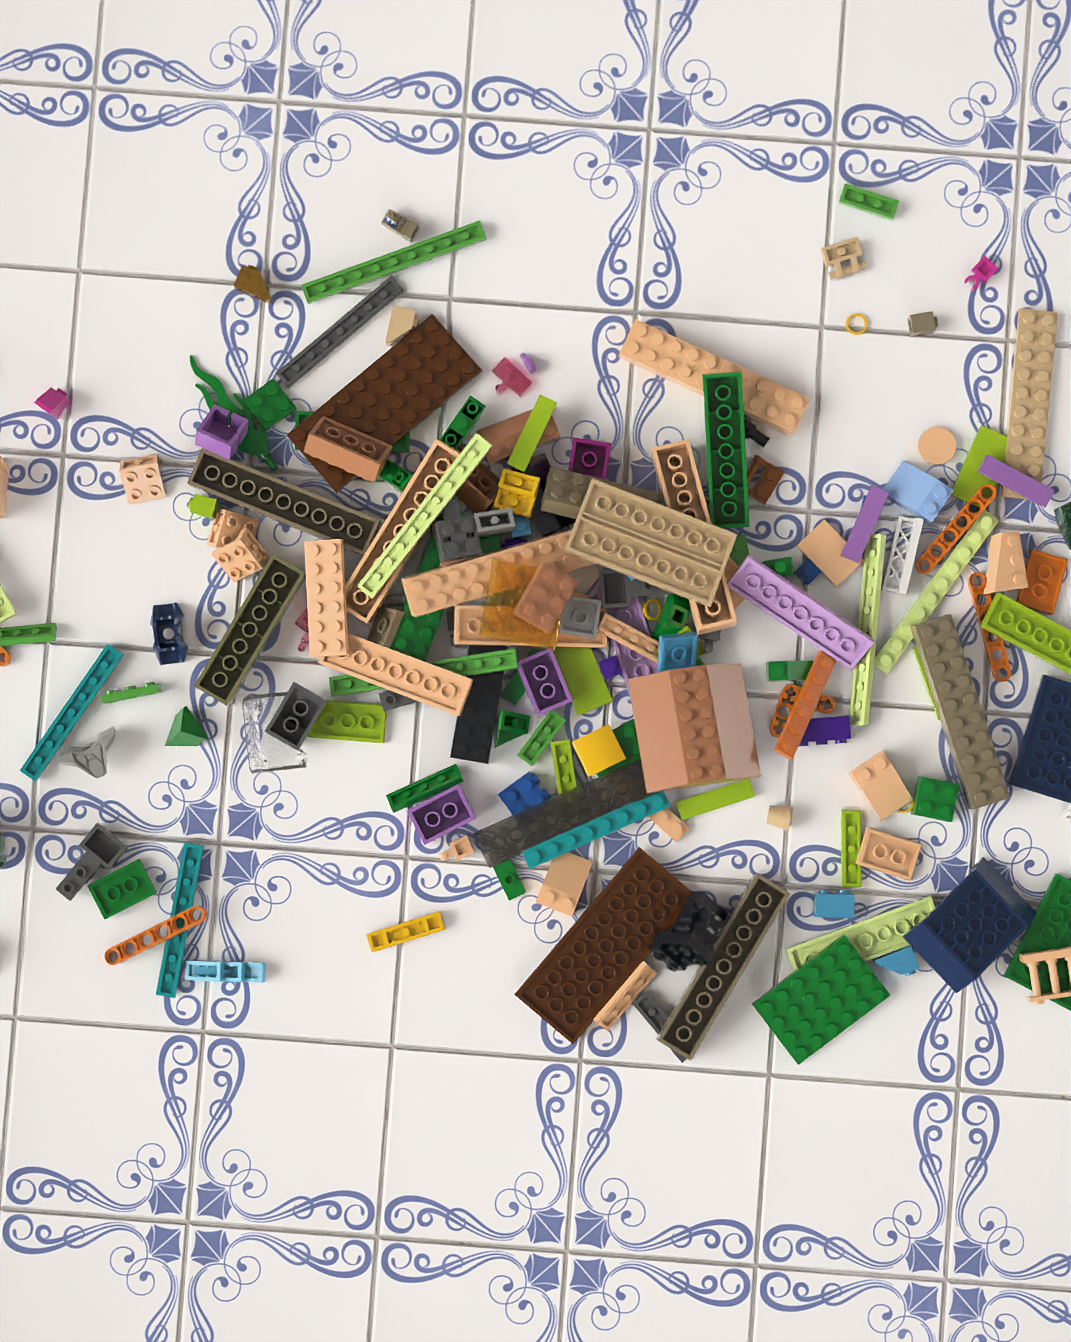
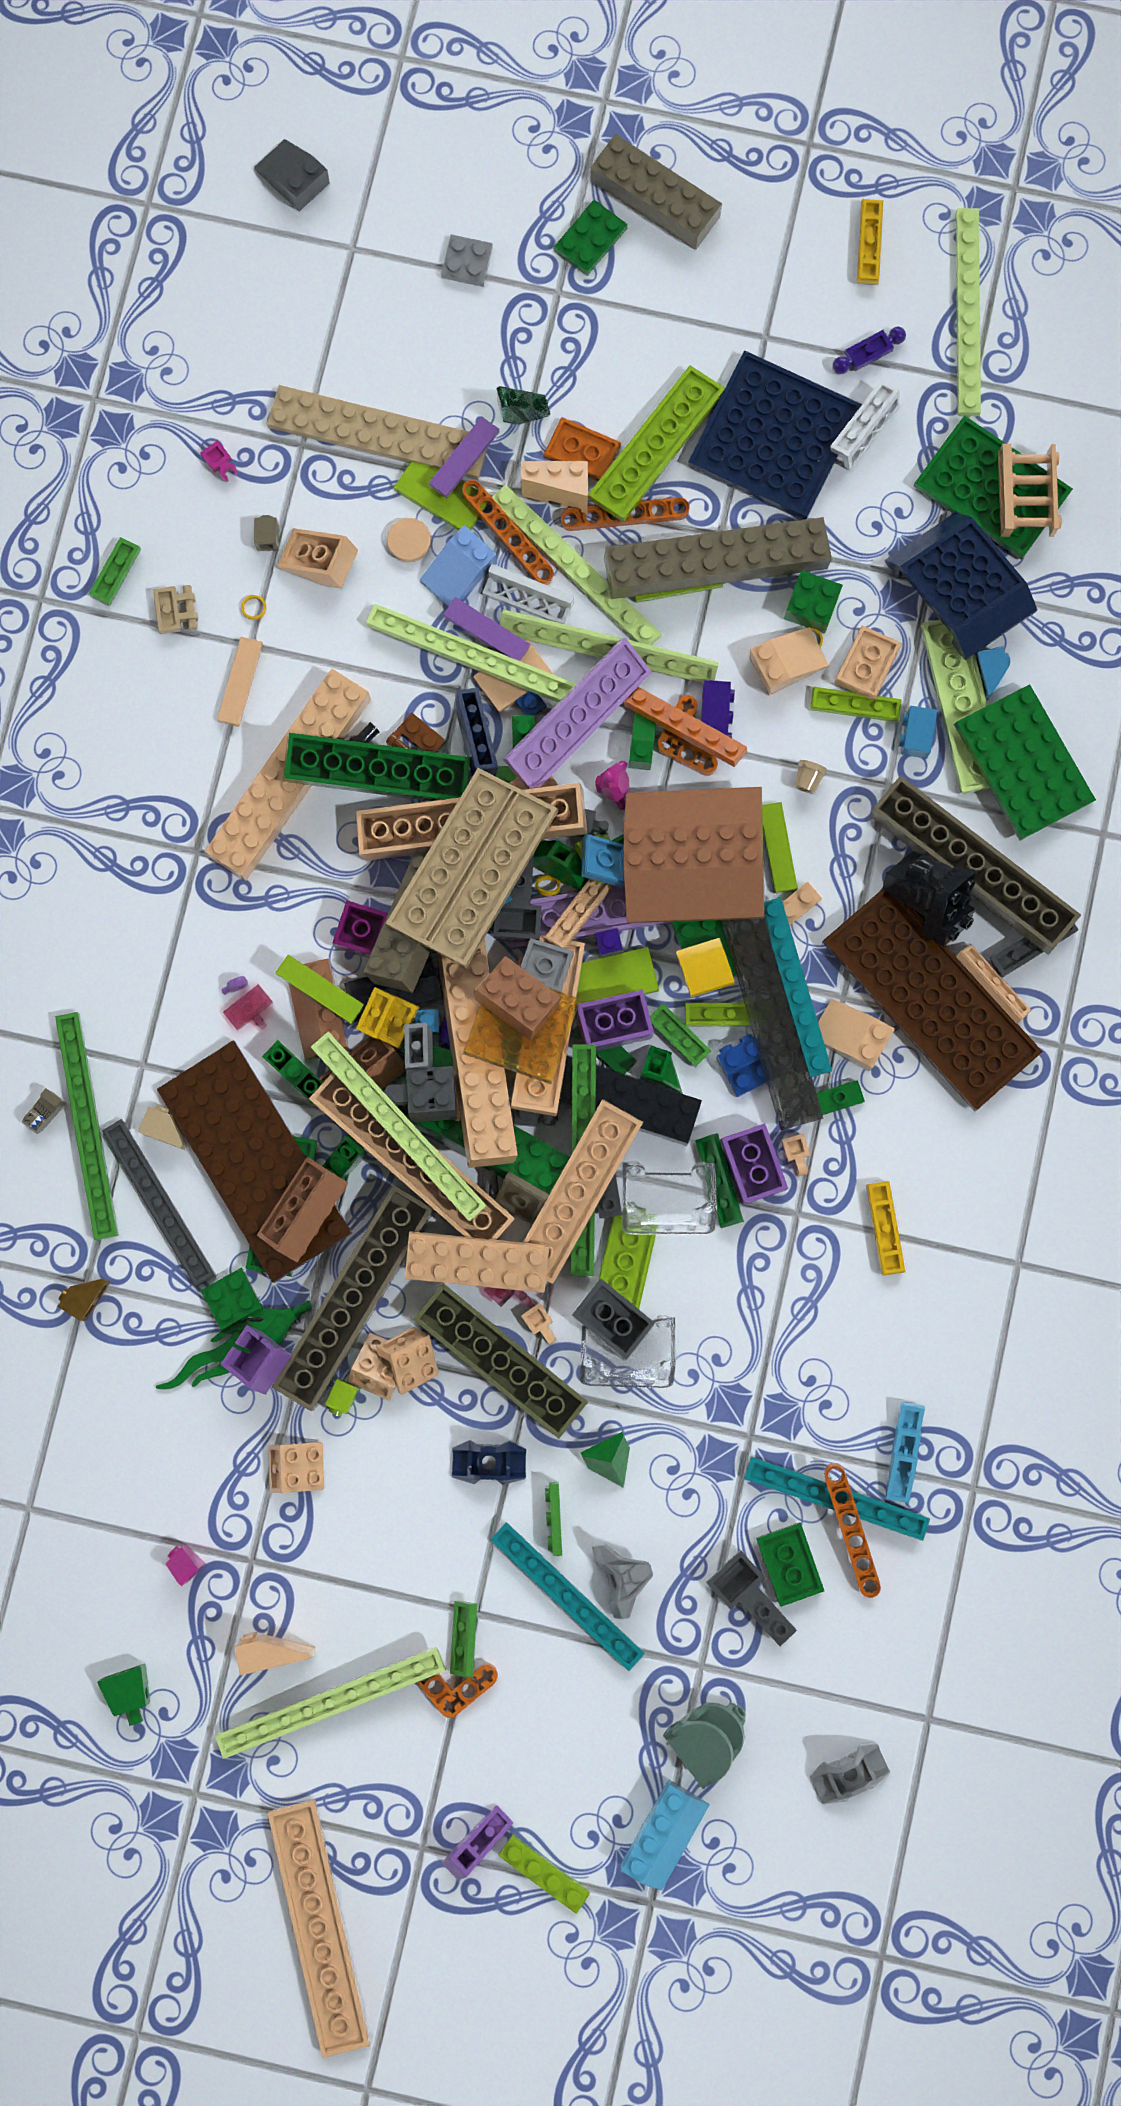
camera: 80 degrees left, 5 degrees down
(288, 656) = (538, 1321): none -> light nougat plate
(401, 747) = (669, 1200): none -> clear windscreen
(748, 652) = (614, 784): none -> dark pink rock
(772, 528) = (475, 731): none -> dark blue brick
(789, 323) = (240, 681): none -> light nougat tile
(842, 512) = (468, 653): none -> yellowish green plate
(908, 371) = (318, 557): none -> light nougat slope

